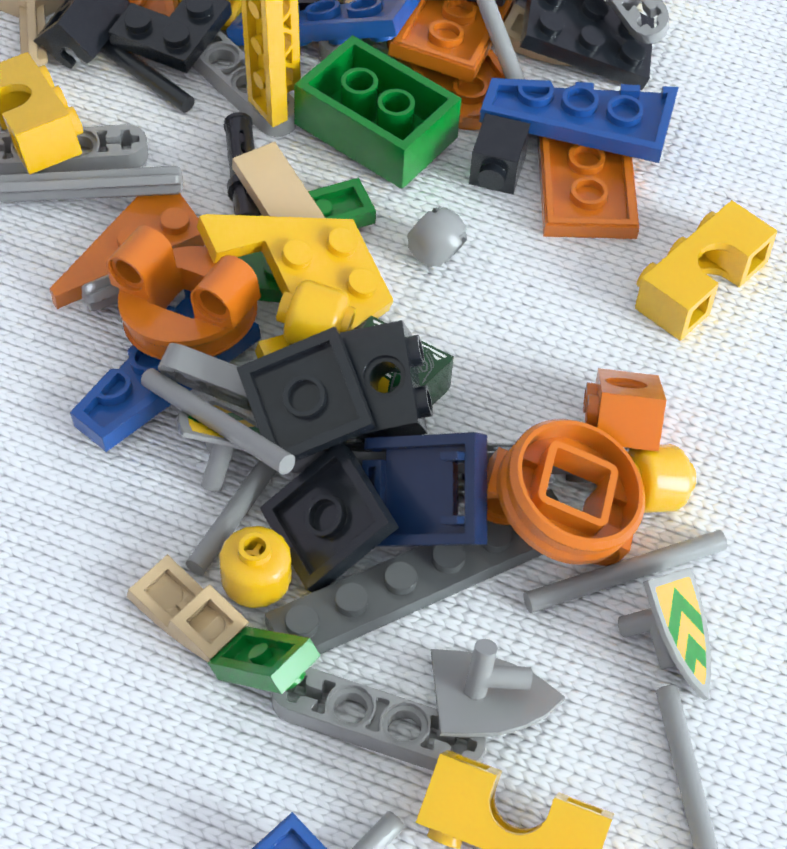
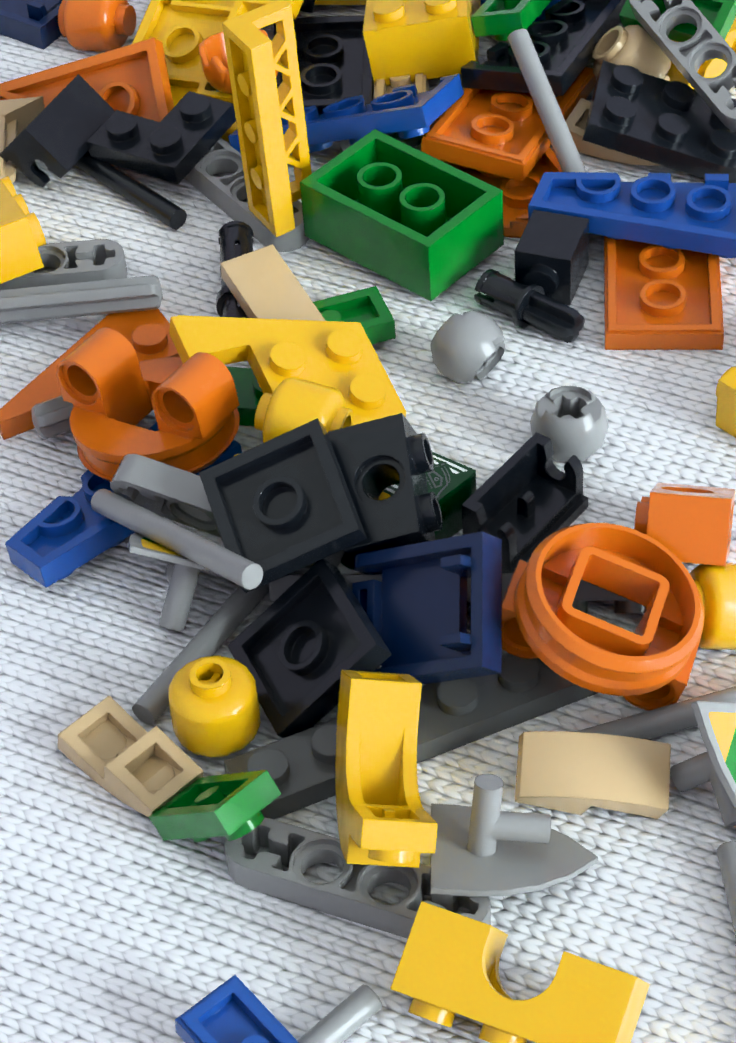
camera: 10 degrees right, 10 degrees down
(392, 633) = (377, 771): none -> yellow arch
(482, 197) = (528, 306): none -> black axle
(490, 385) = (526, 501): none -> black hinge
(522, 309) = (572, 421): none -> light grey piece
(559, 625) = (593, 769): none -> tan slope

